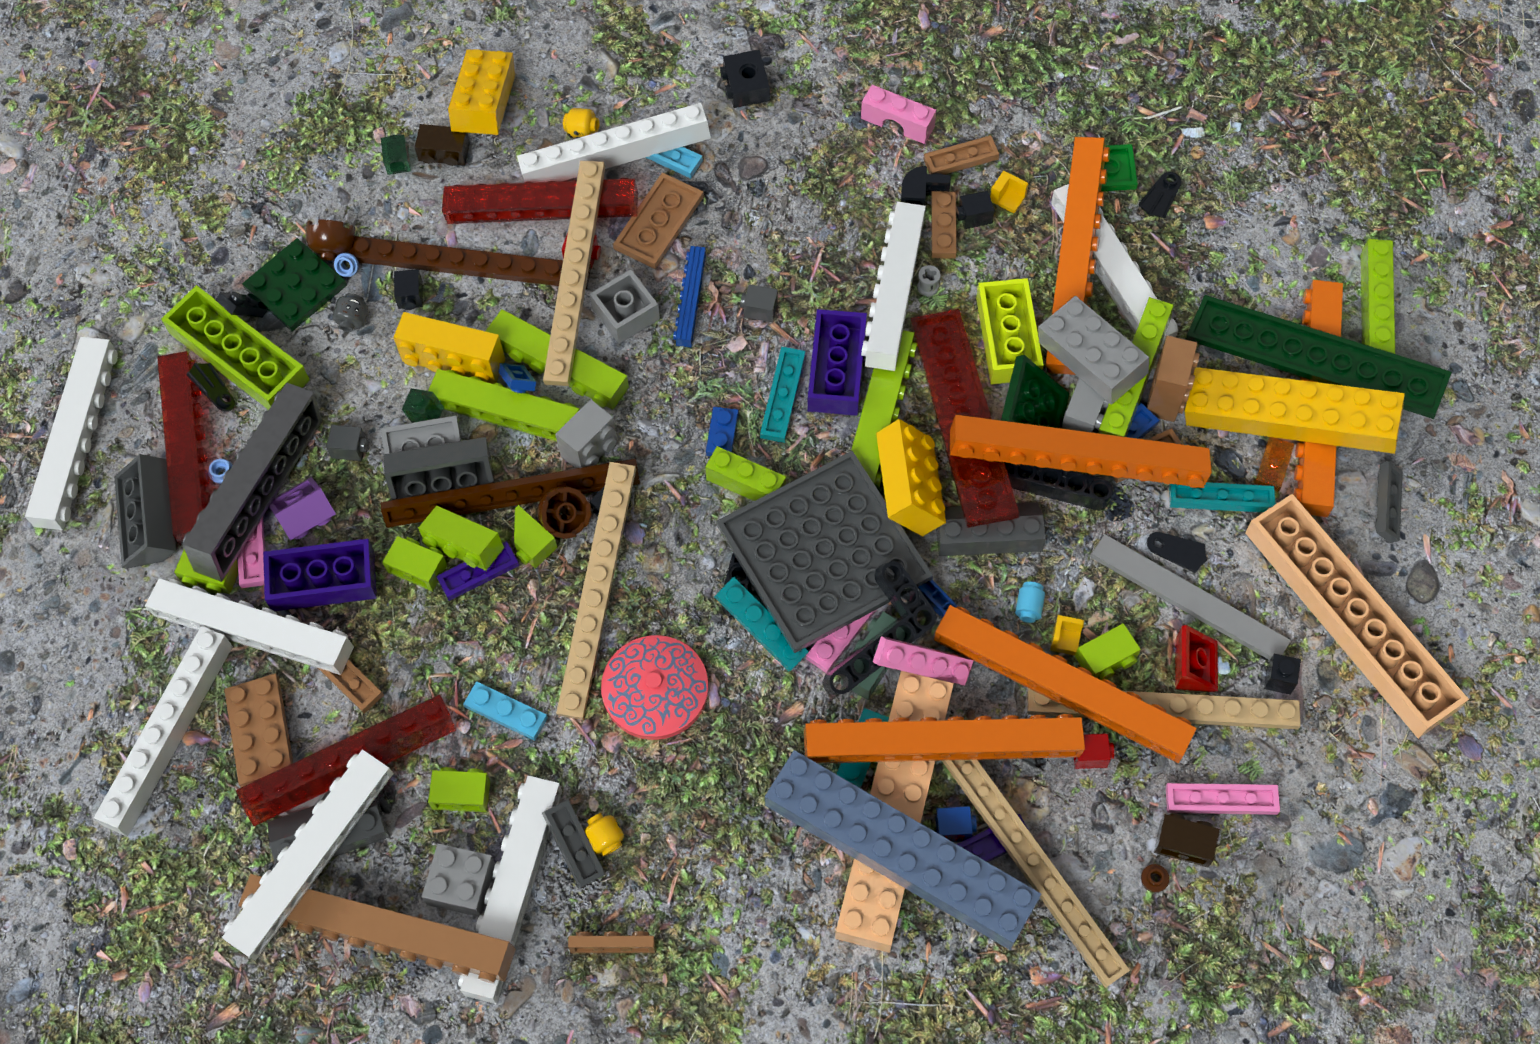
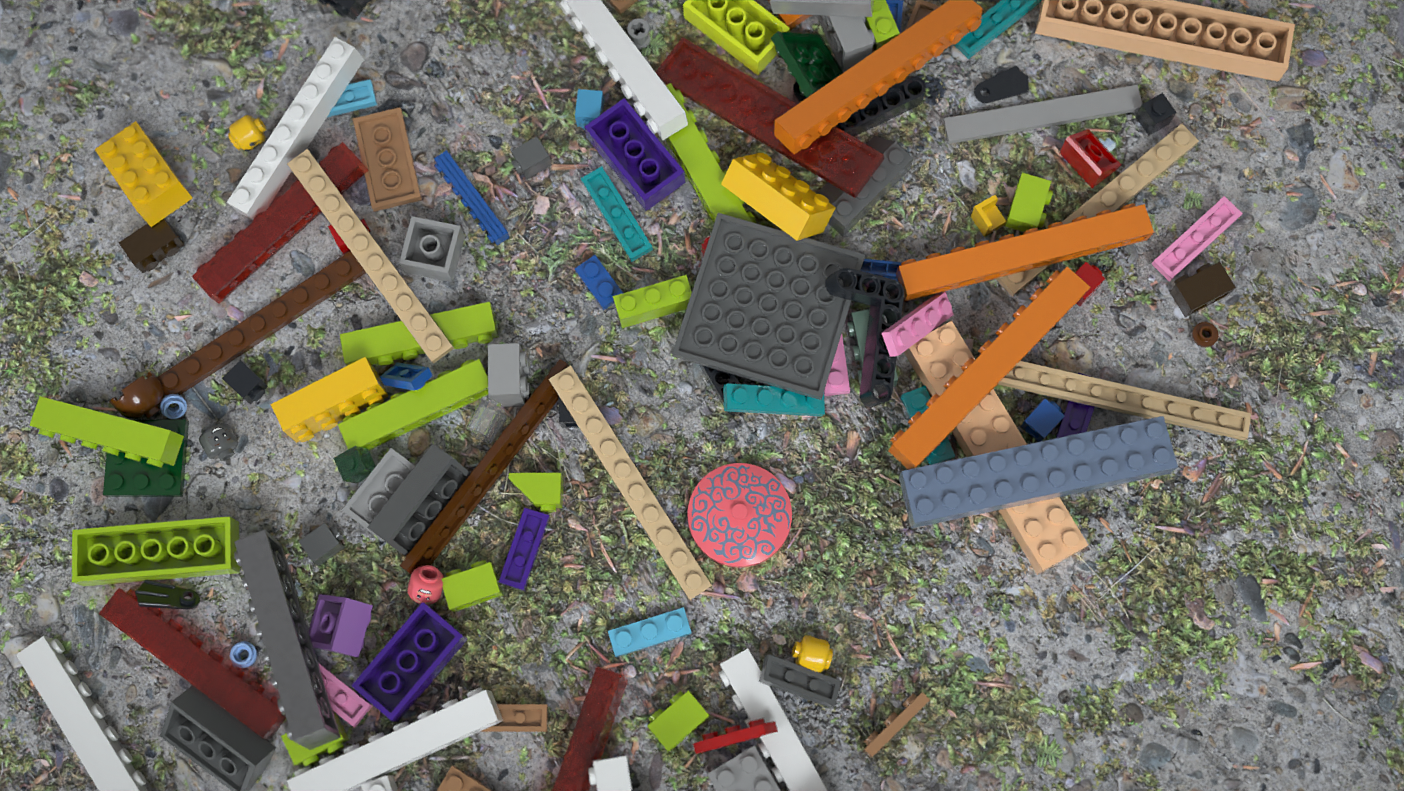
camera: 40 degrees left, 10 degrees up
(241, 304) = (124, 512): black plate -> none
(285, 242) = (106, 430): none -> lime brick
(384, 532) = (425, 585): none -> coral head
(395, 154) = (121, 283): clear green brick -> none
(461, 538) = (489, 537): lime brick -> none
(485, 835) = (735, 735): none -> red plate
(541, 455) = (487, 421): none -> clear brick
(564, 512) = (547, 447): reddish brown cylinder -> none
(839, 299) = (588, 106): none -> dark azure brick
(1030, 602) = (941, 213): medium azure brick -> none

